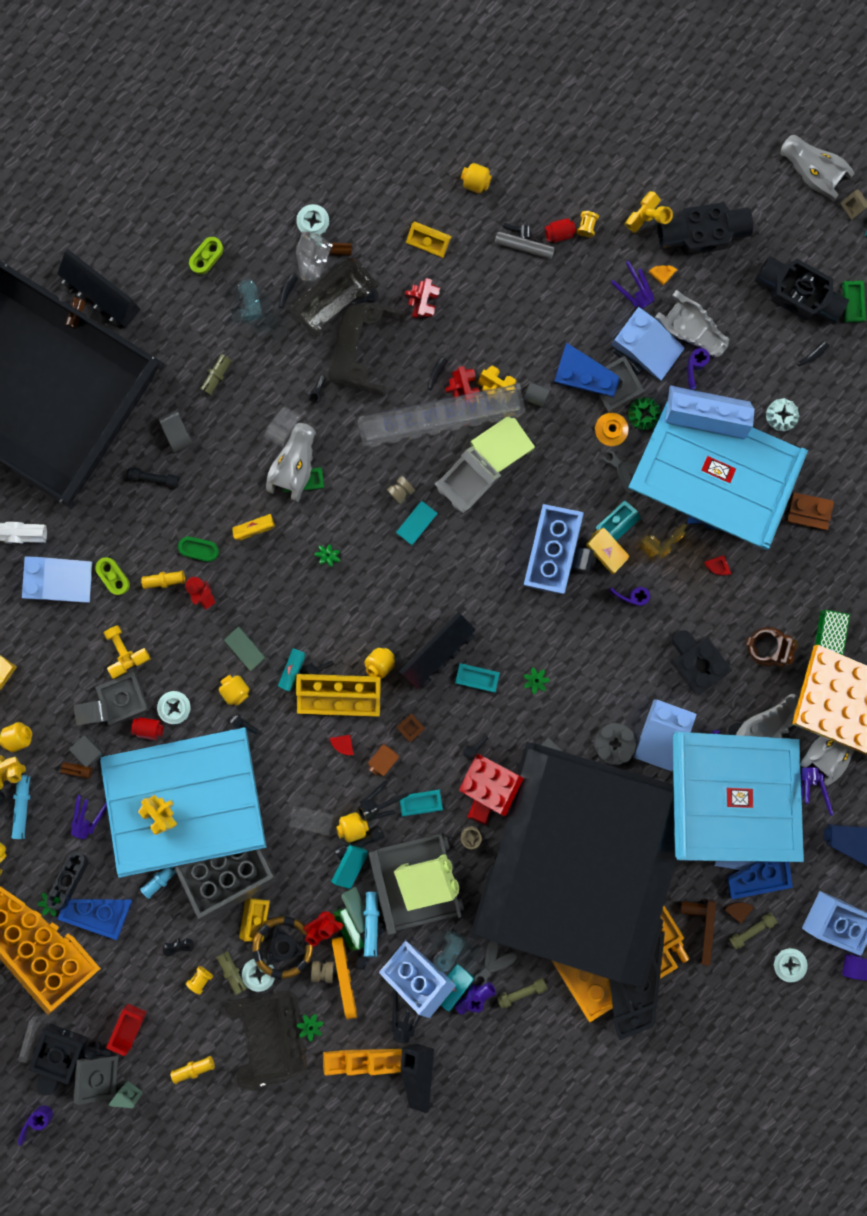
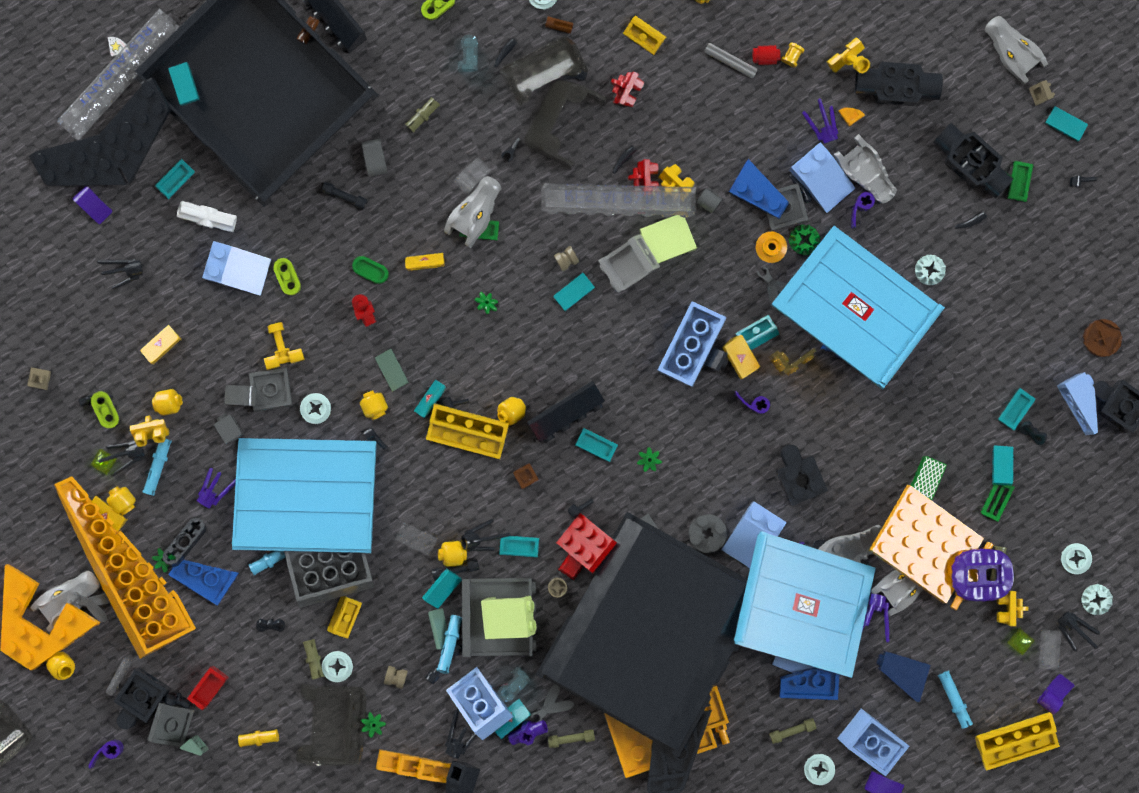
camera: 10 degrees right, 0 degrees up
(76, 770) = (214, 445): reddish brown piece -> none
(147, 728) = (287, 421): red brick -> none
(160, 812) = (283, 498): yellow hips -> none
(163, 579) = (332, 290): yellow pin -> none
(199, 980) = (283, 659): yellow bush -> none
(281, 947) = (364, 647): black piece -> none
(312, 255) = (535, 26): clear slope -> none
(321, 928) = (404, 637): red hips -> none
(343, 744) = (460, 477): red tile -> none
(344, 978) = (414, 687): light orange beam -> none
(348, 930) = (427, 644): green tile -> none
(383, 760) = (493, 499): dark orange brick -> none
(523, 229) = (733, 47): black hand -> none
(708, 911) = (756, 703): reddish brown piece -> none
(709, 412) = (862, 252): light blue slope -> none
(718, 566) = (839, 394): red tile -> none
(739, 910) = (784, 709): reddish brown tile -> none
(784, 653) = (880, 484): reddish brown piece -> none
(810, 511) = (934, 363): dark orange plate -> none

